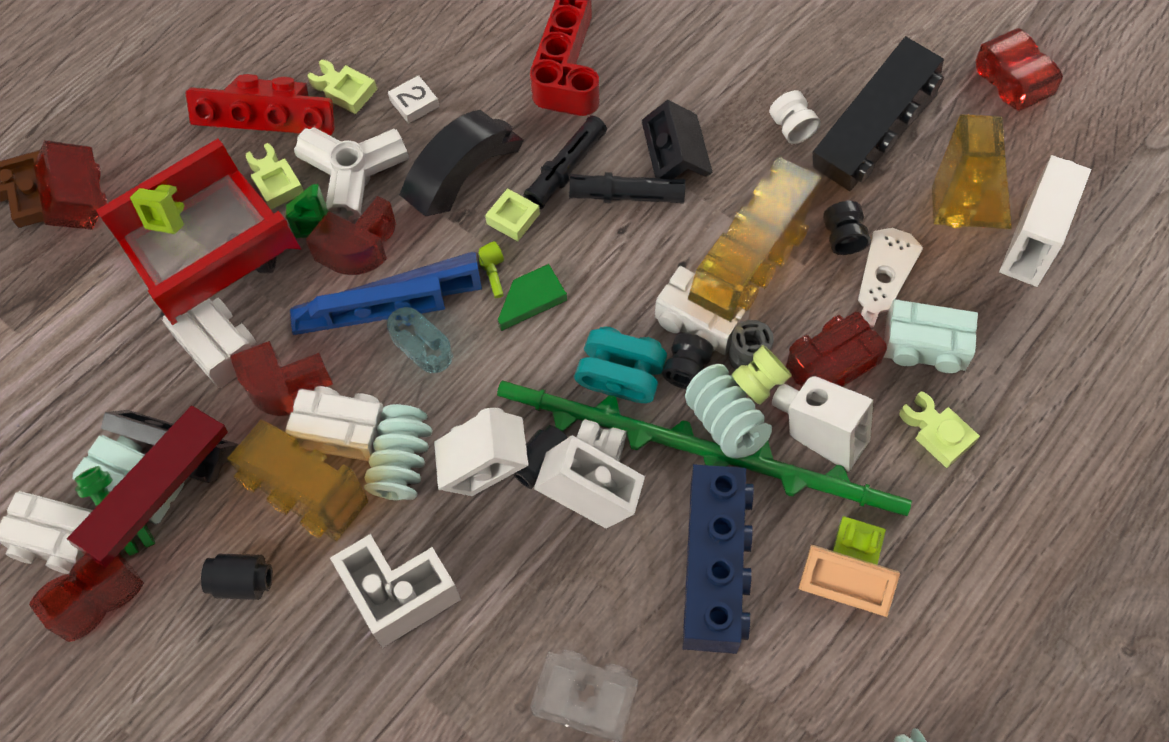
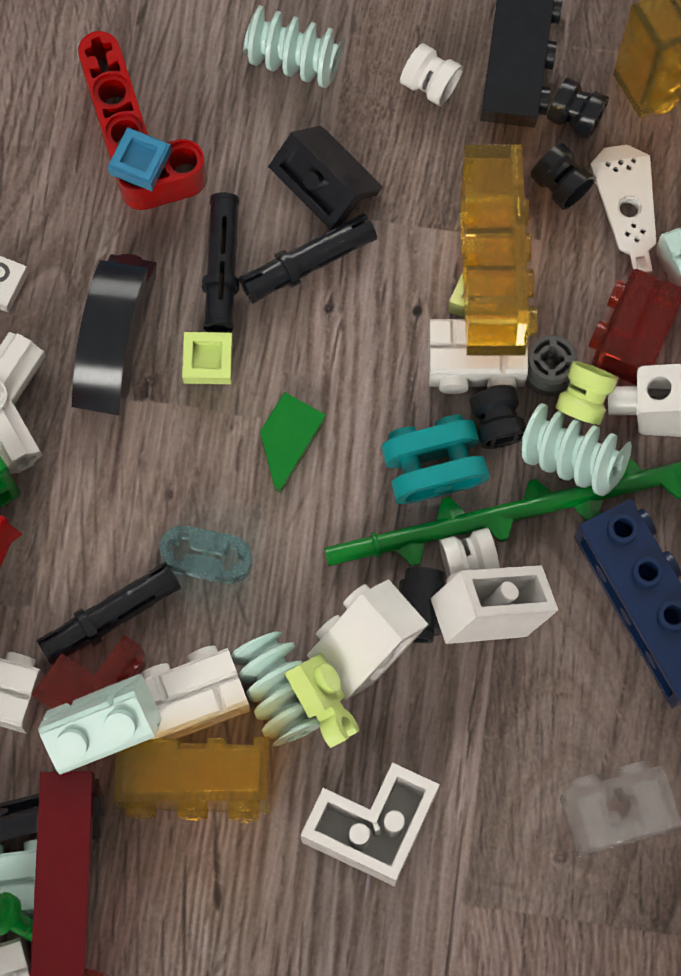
camera: 35 degrees left, 10 degrees up
(236, 576) = (205, 910): black brick -> none
(251, 396) = (100, 724): none -> light aqua brick
(309, 339) = (90, 625): none -> black pin
(350, 246) = (59, 497): clear red brick -> none
(376, 301) = (156, 503): blue wedge -> none
(420, 470) = (320, 694): none -> yellowish green plate
(489, 257) = (214, 423): lime hand -> none
(552, 64) = (139, 159): none -> dark azure tile
(709, 54) = (292, 48): none -> light aqua piece
(887, 189) = (577, 108): none -> black wheel

